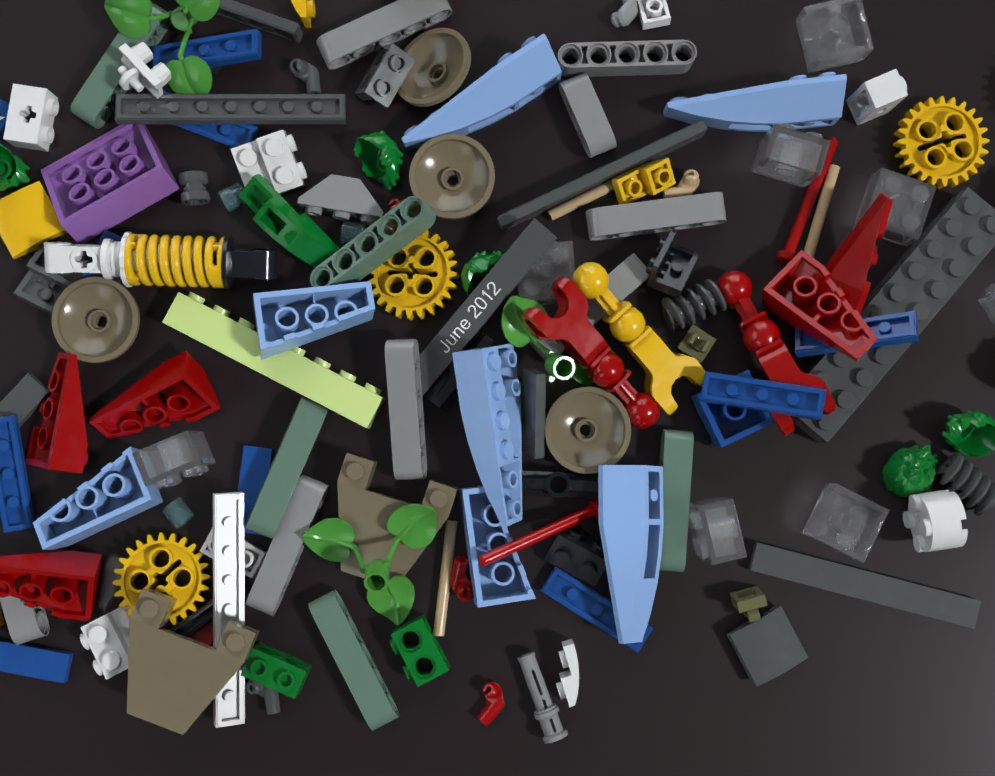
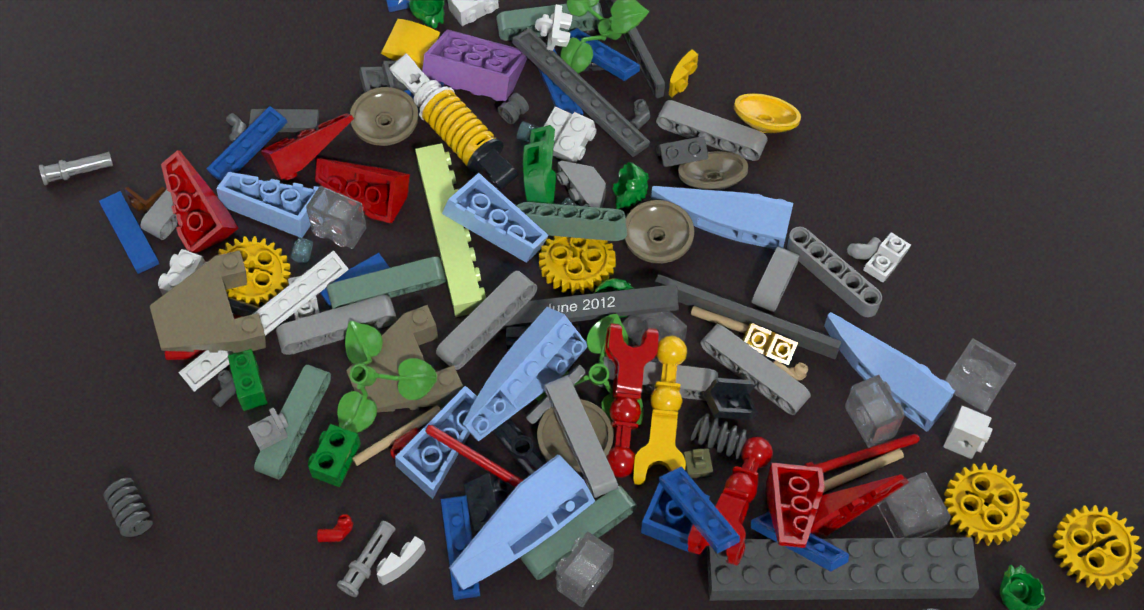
camera: 50 degrees right, 25 degrees down
(351, 695) = (269, 430): none -> light grey bracket
(600, 431) = (581, 436): none -> light grey beam

